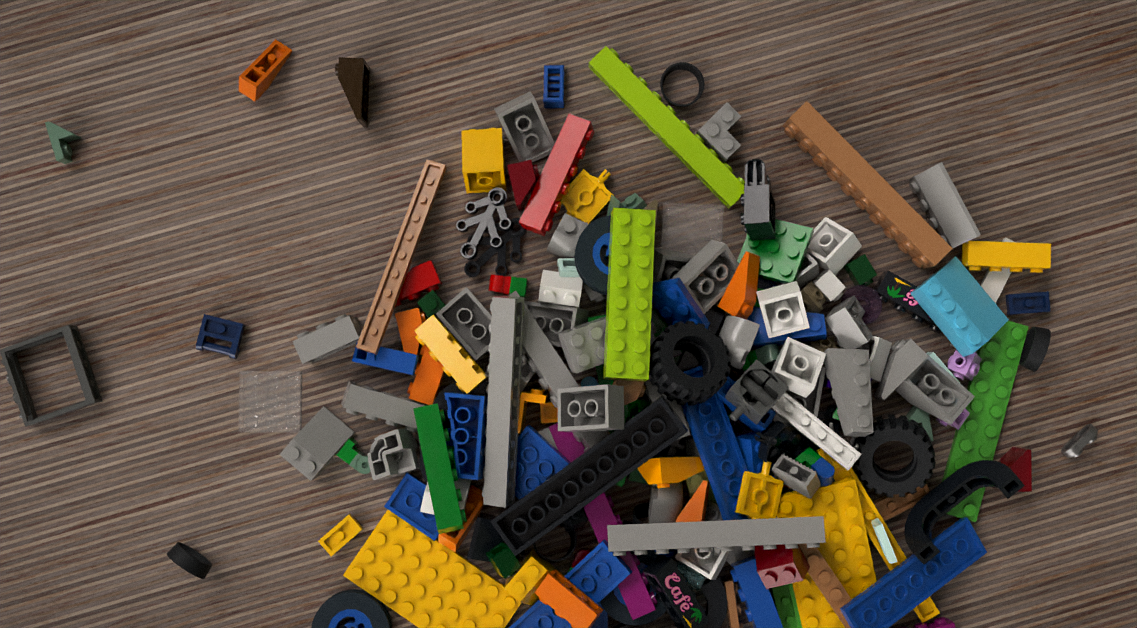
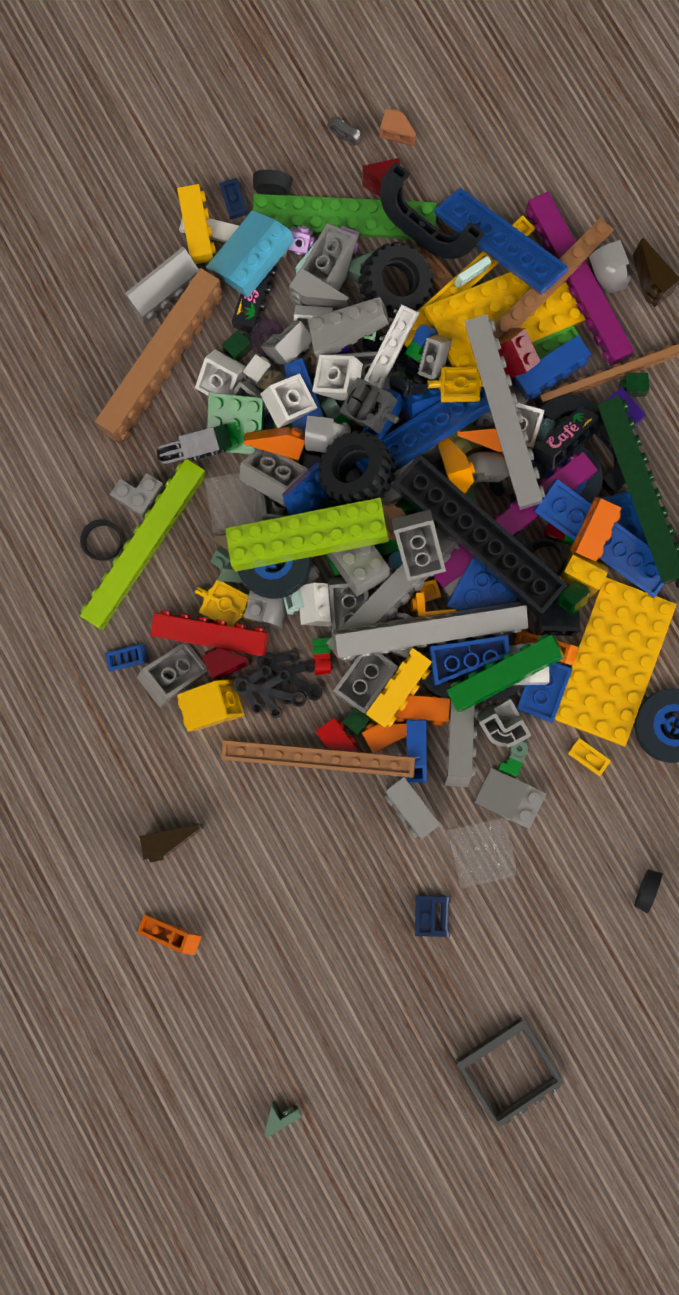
camera: 105 degrees left, 5 degrees down
(1071, 499) = (397, 128): none -> nougat slope

